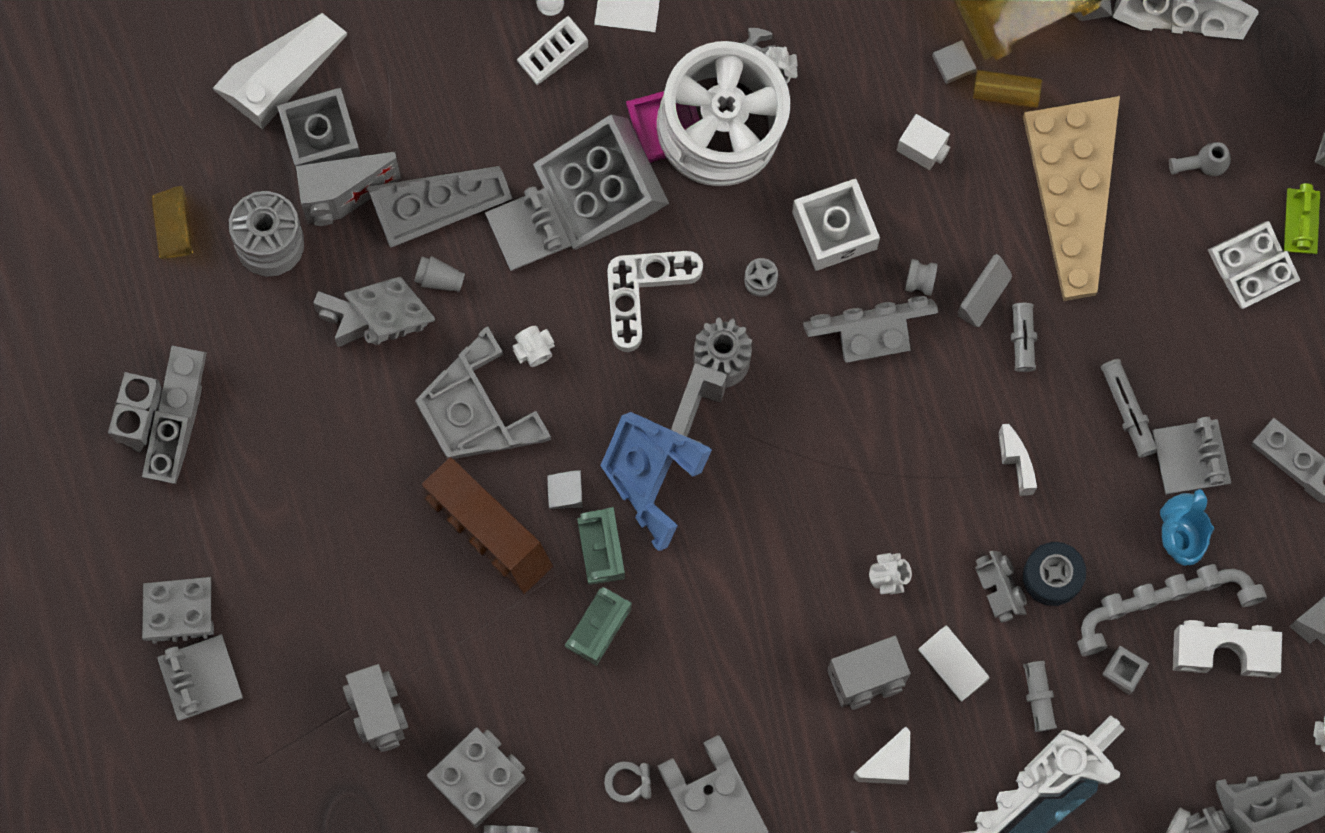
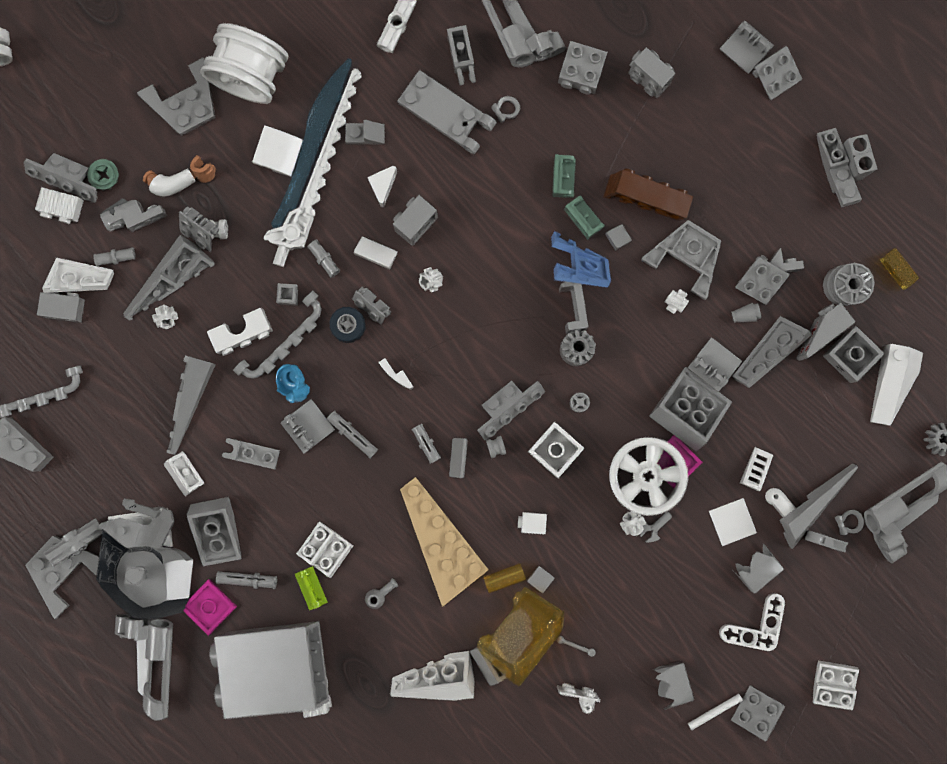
camera: 155 degrees right, 10 degrees up
(639, 278) = (643, 368): white beam -> none

